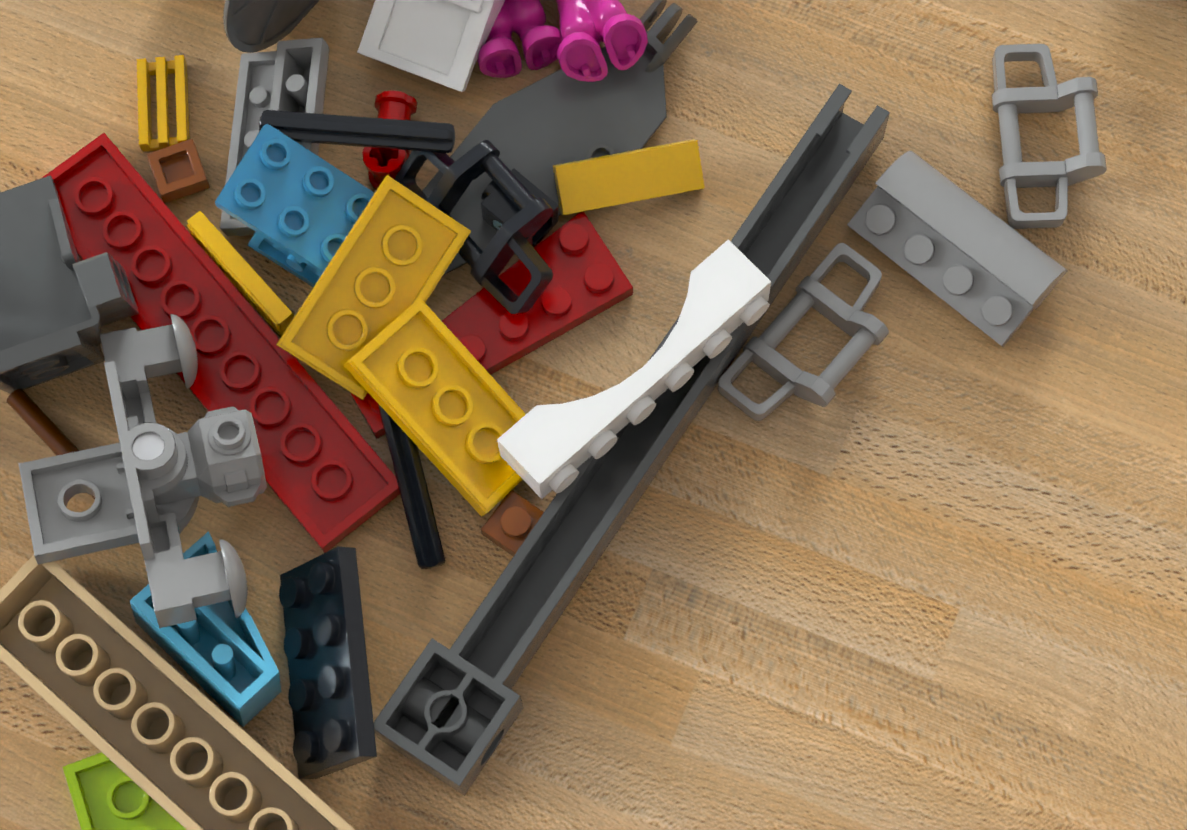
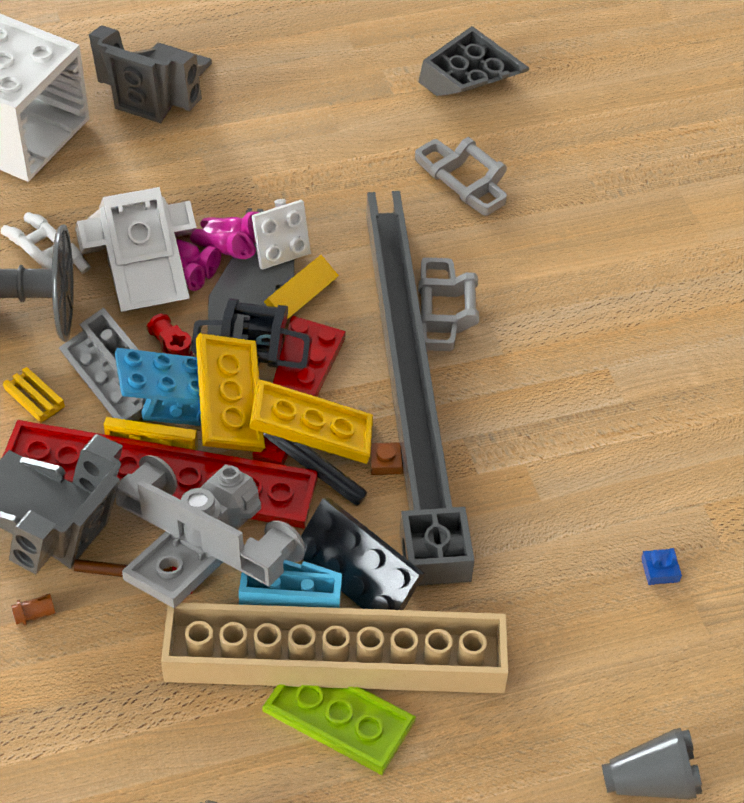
camera: 45 degrees left, 20 degrees down
(178, 170) = (72, 414): dark orange plate -> none
(362, 131) = (165, 328): black axle -> none
(559, 438) = (383, 386): white arch -> none
(659, 72) = (281, 233): none -> white plate
(956, 247) = (472, 234): light grey brick -> none

